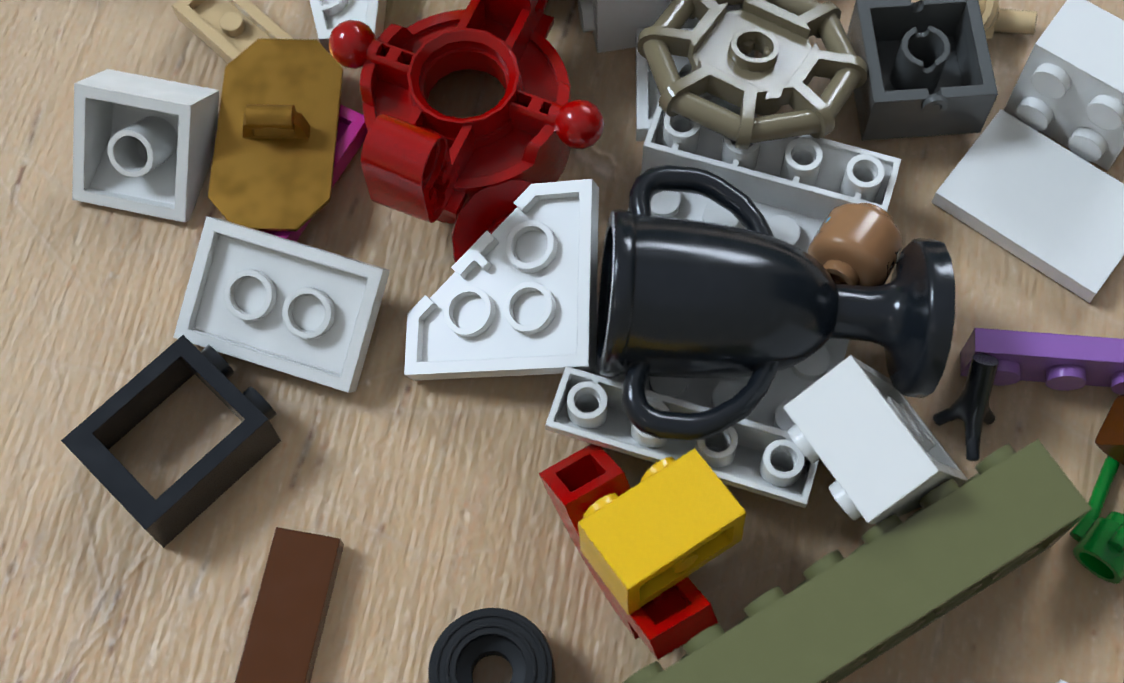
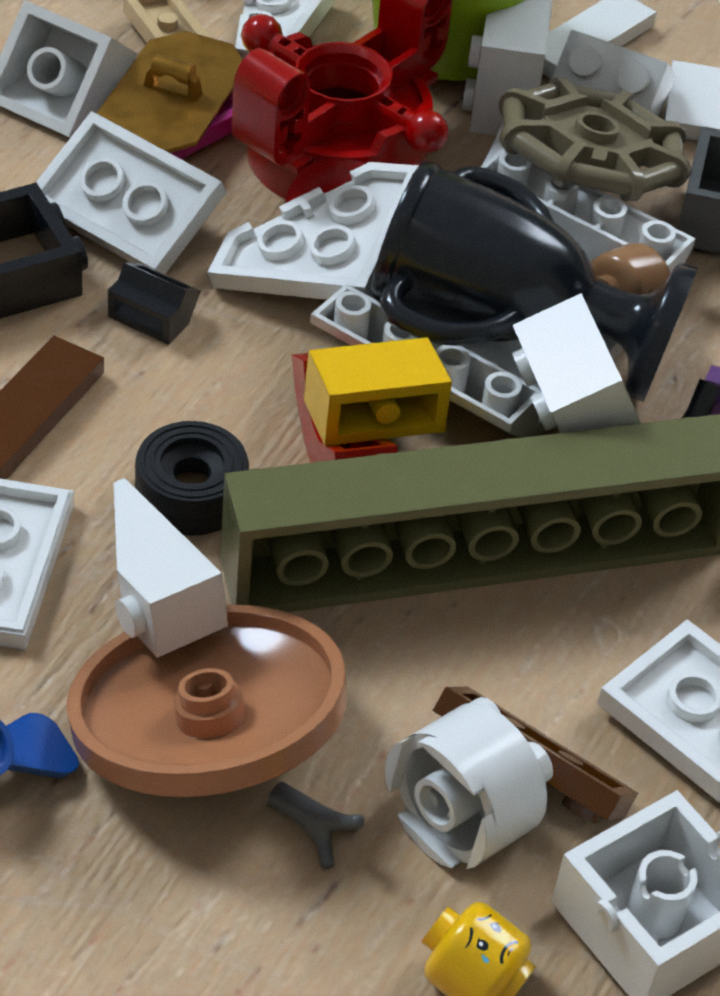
camera: 10 degrees right, 20 degrees down
(361, 433) = (151, 302): none -> black piece

